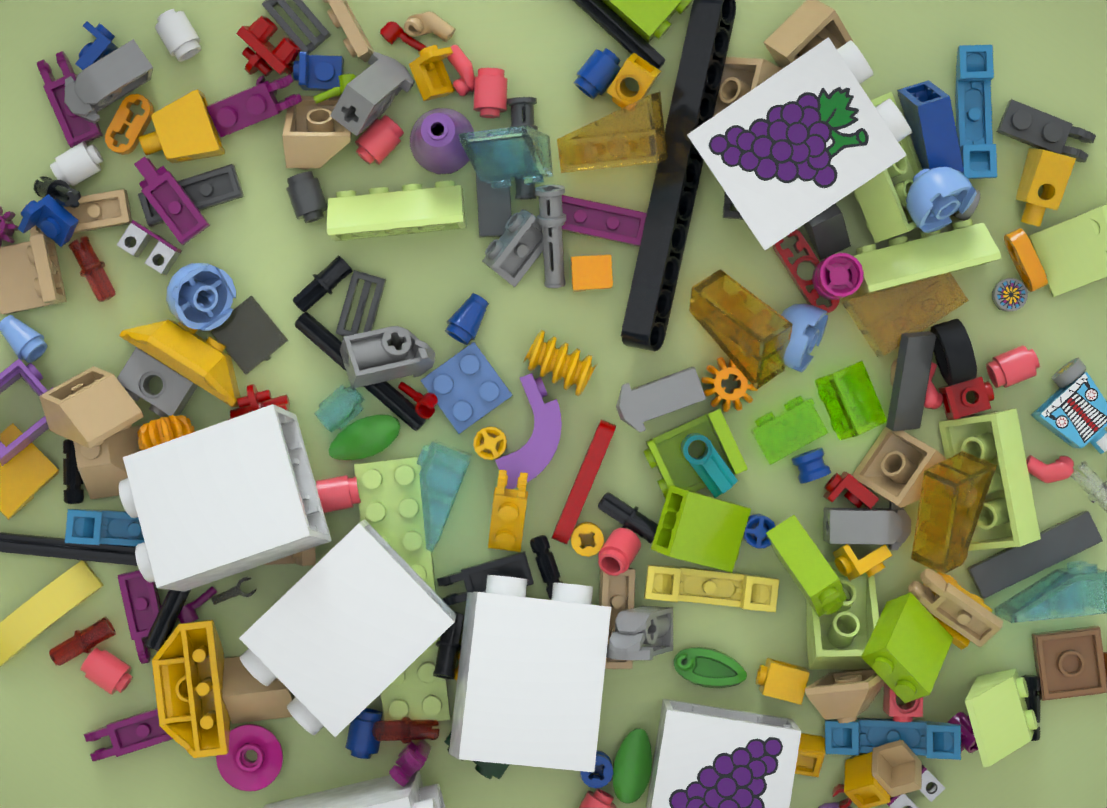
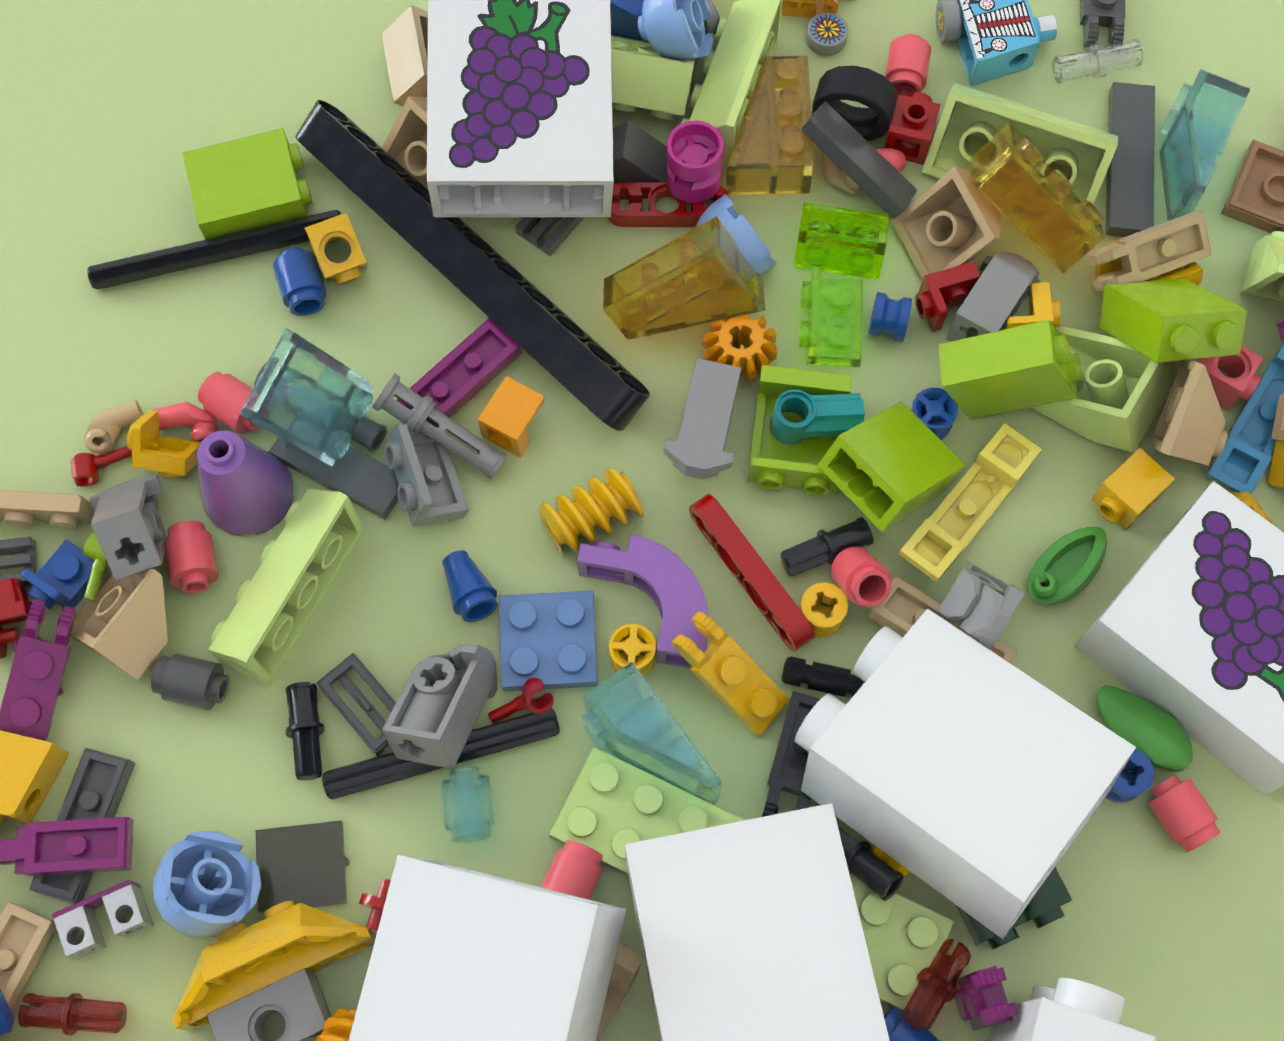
camera: 55 degrees left, 20 degrees down
(365, 437) = (525, 798): bright green arm -> none
(620, 139) = (383, 290): clear yellow wedge -> none
(1052, 472) = (1048, 90): coral arm -> none

